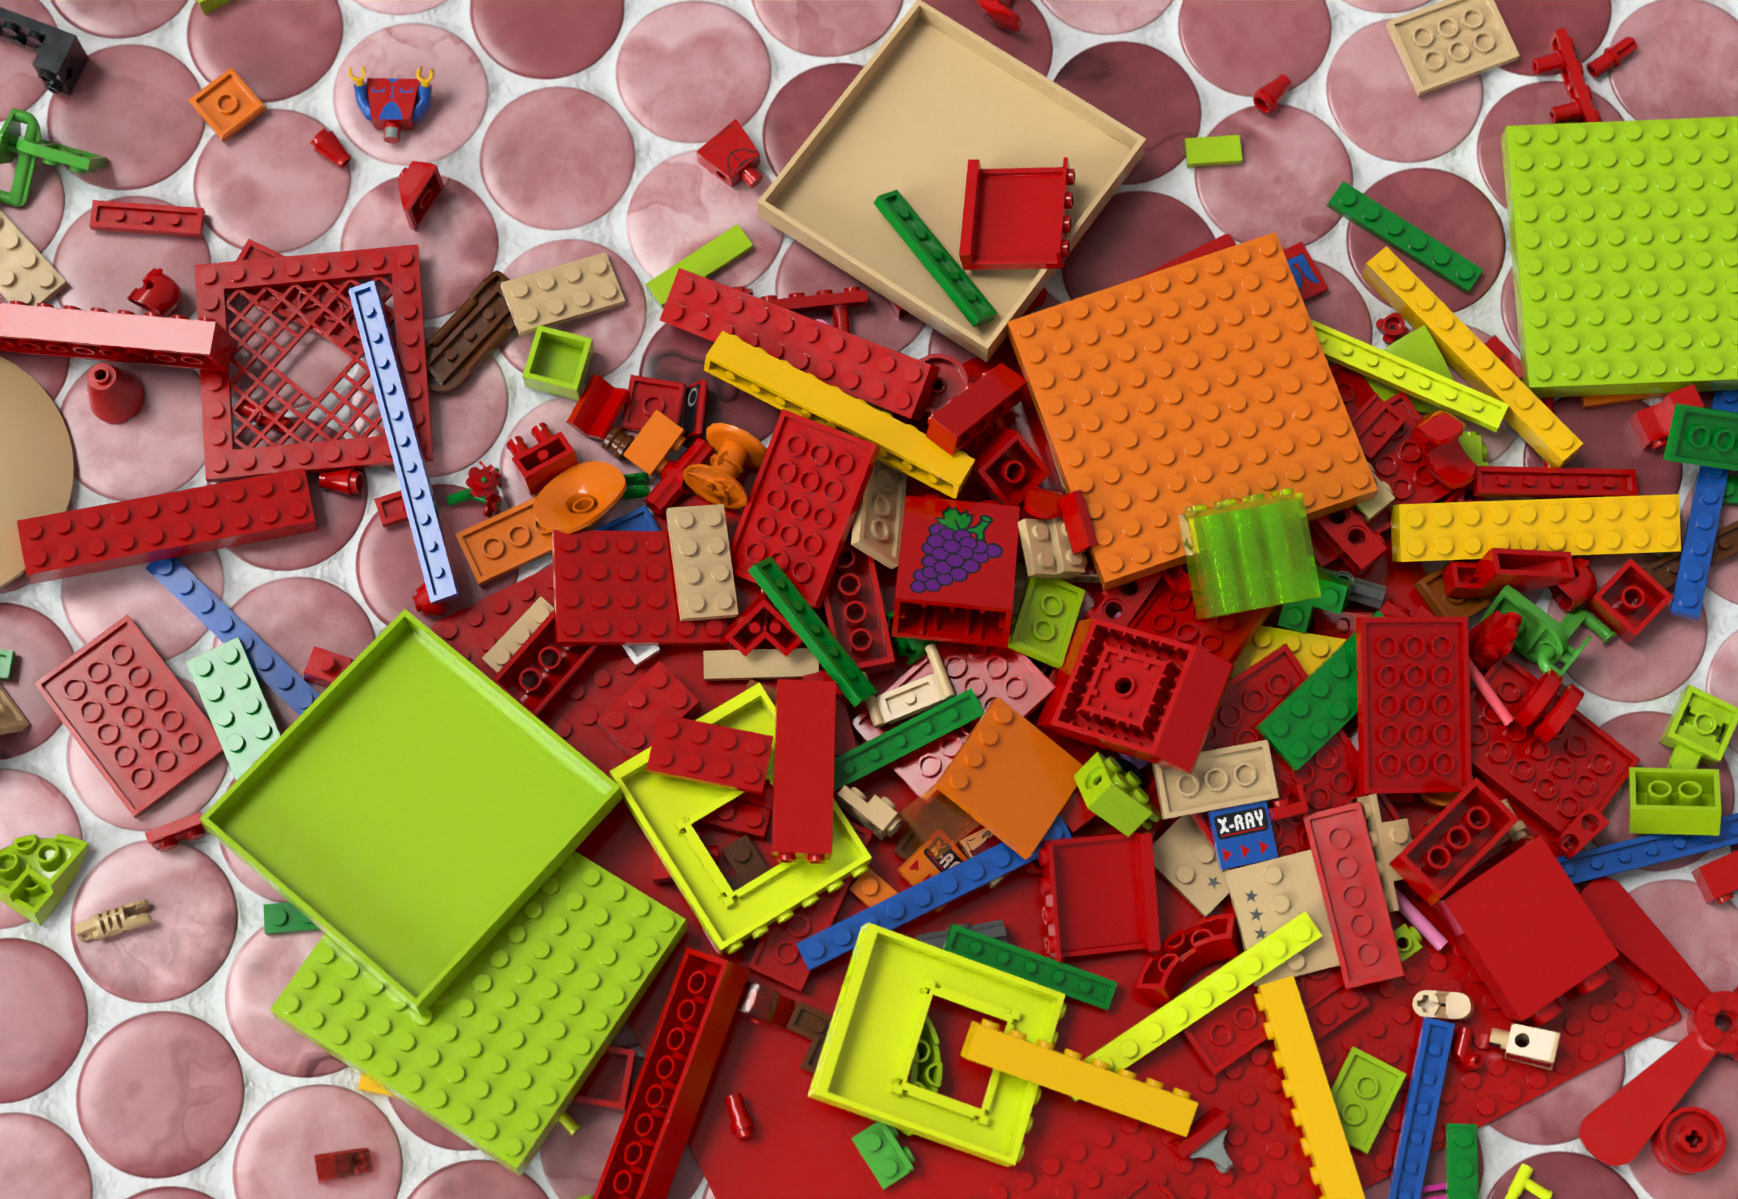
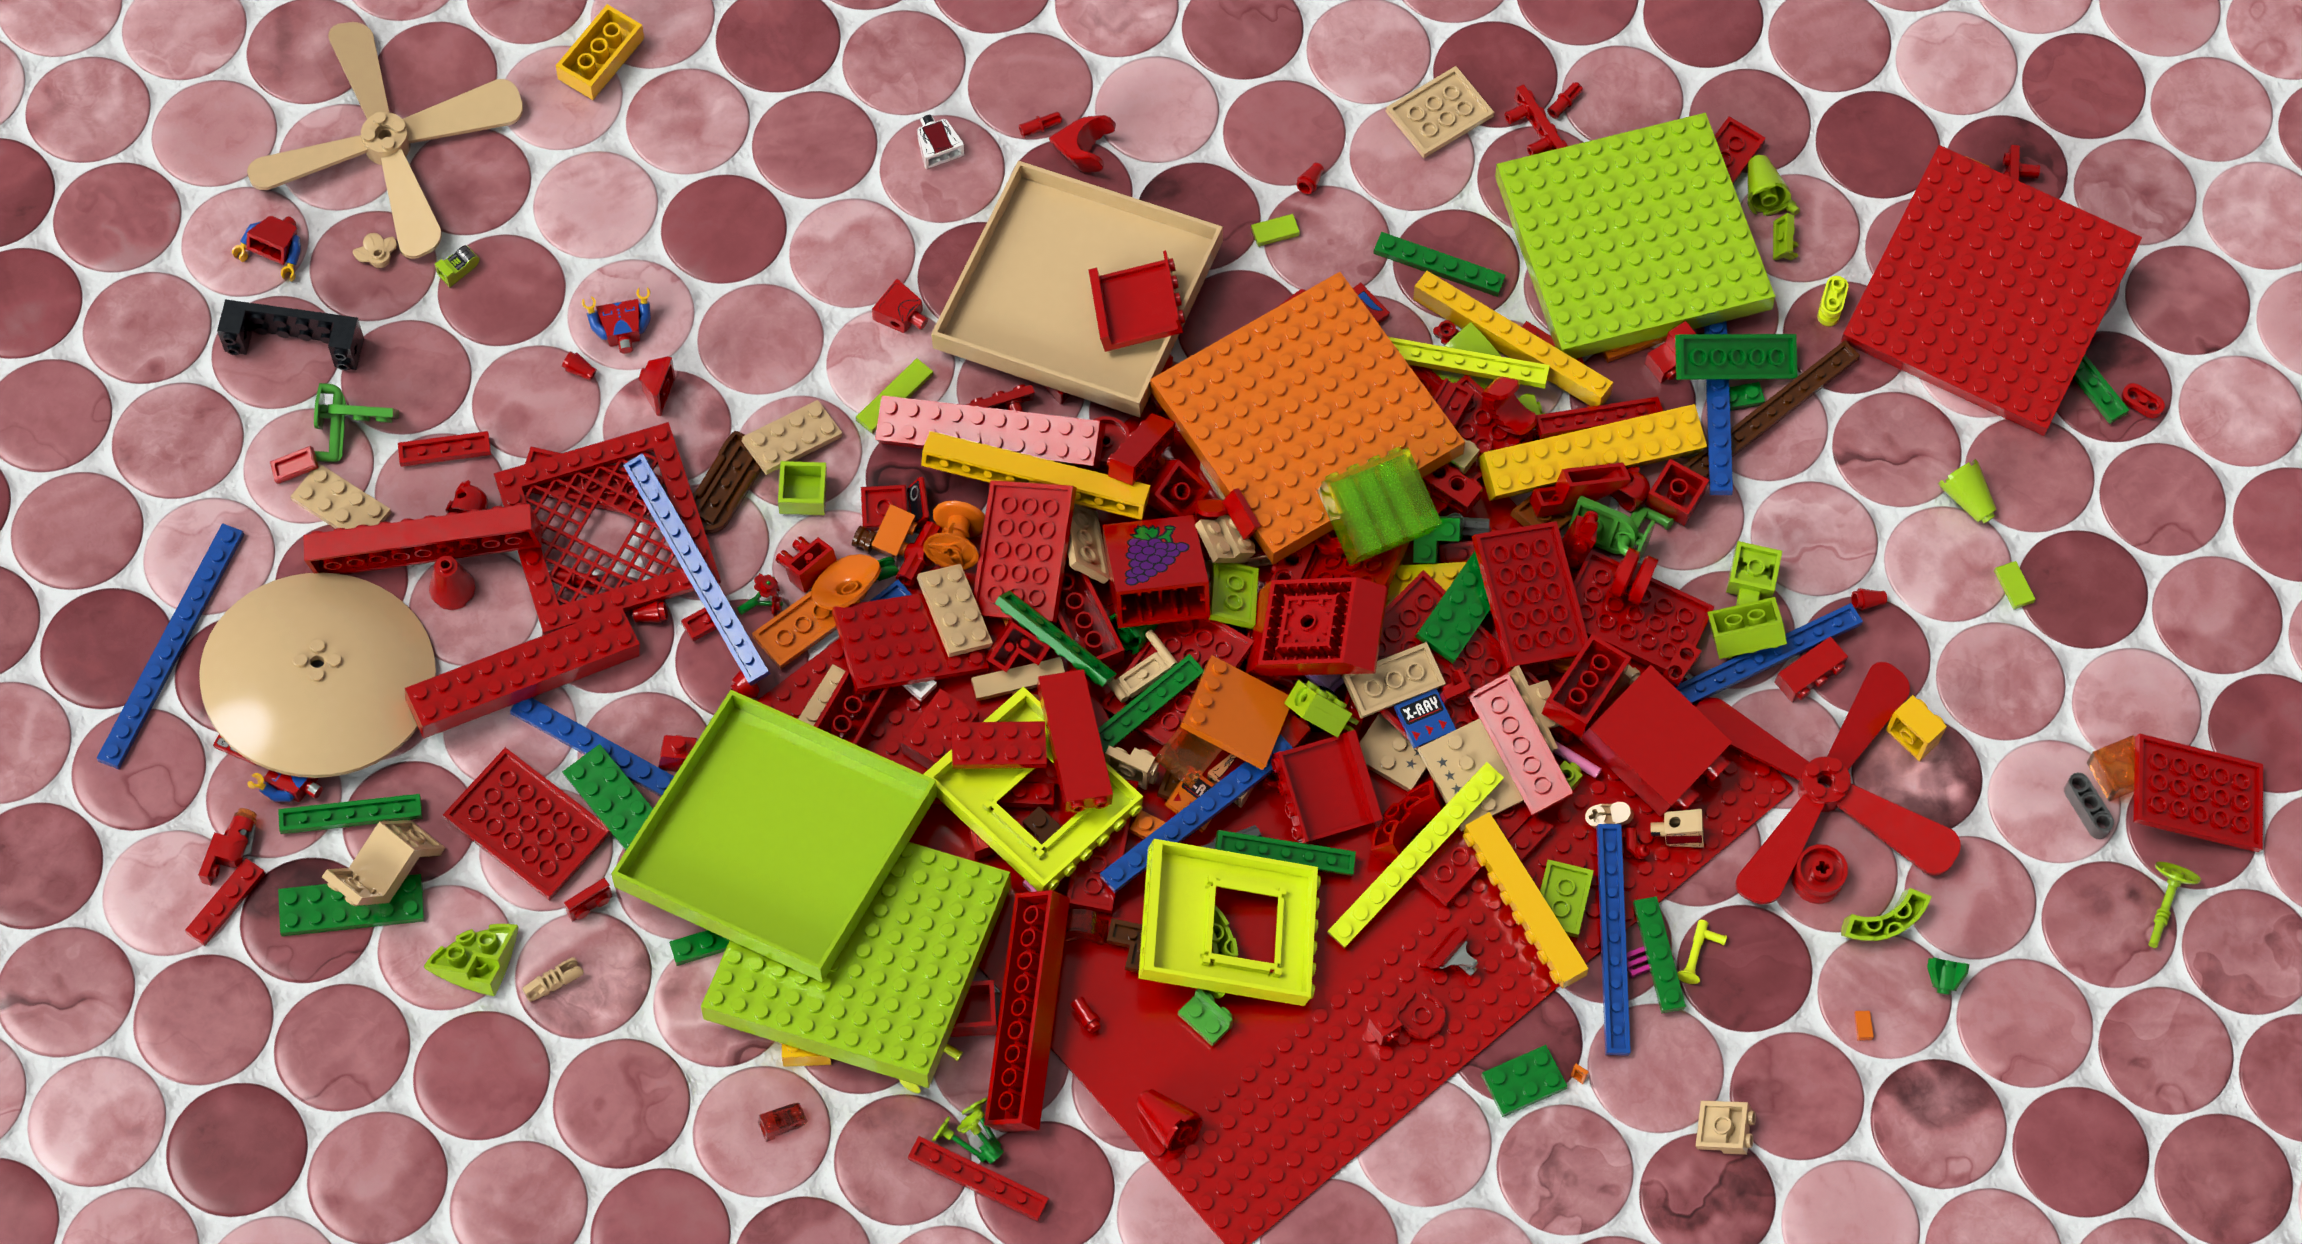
camera: 15 degrees left, 10 degrees down
(227, 104) = (486, 350): orange plate -> none
(597, 408) = (841, 516): red panel -> none
(935, 258) = (1080, 347): green plate -> none
(1079, 1078) = (1343, 922): yellow brick -> none
(1489, 694) = (1587, 580): coral bar -> none

